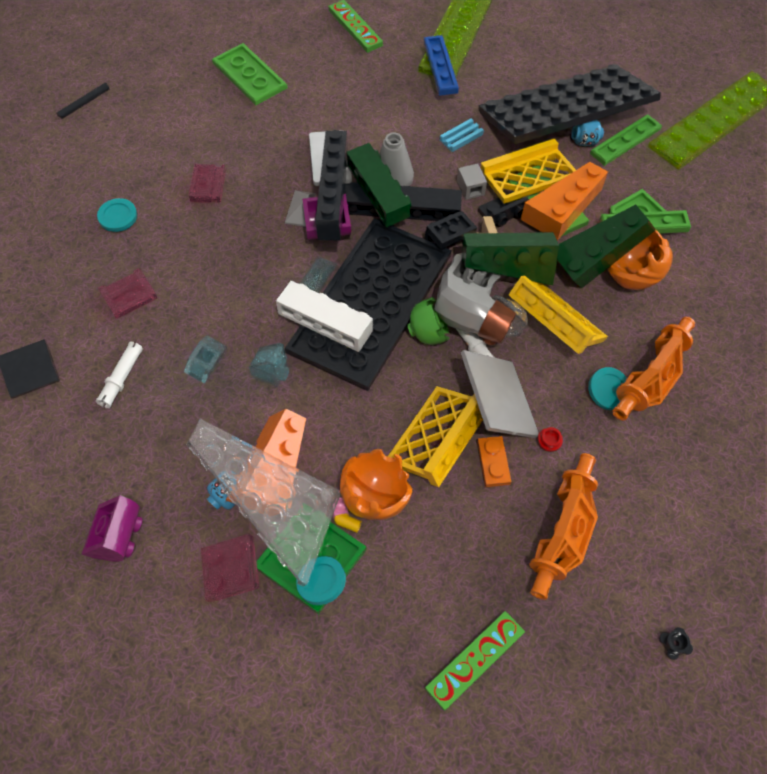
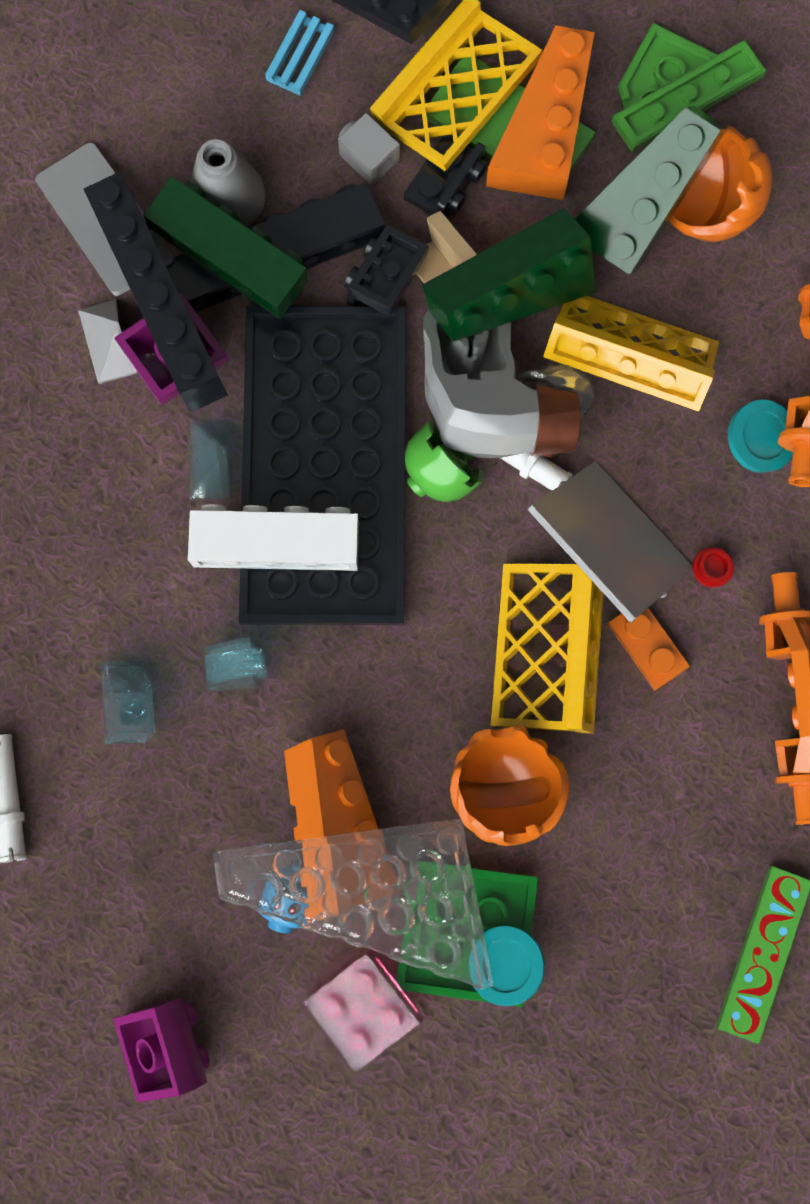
camera: 25 degrees left, 20 degrees up
(343, 519) = (483, 851): yellow arm -> none

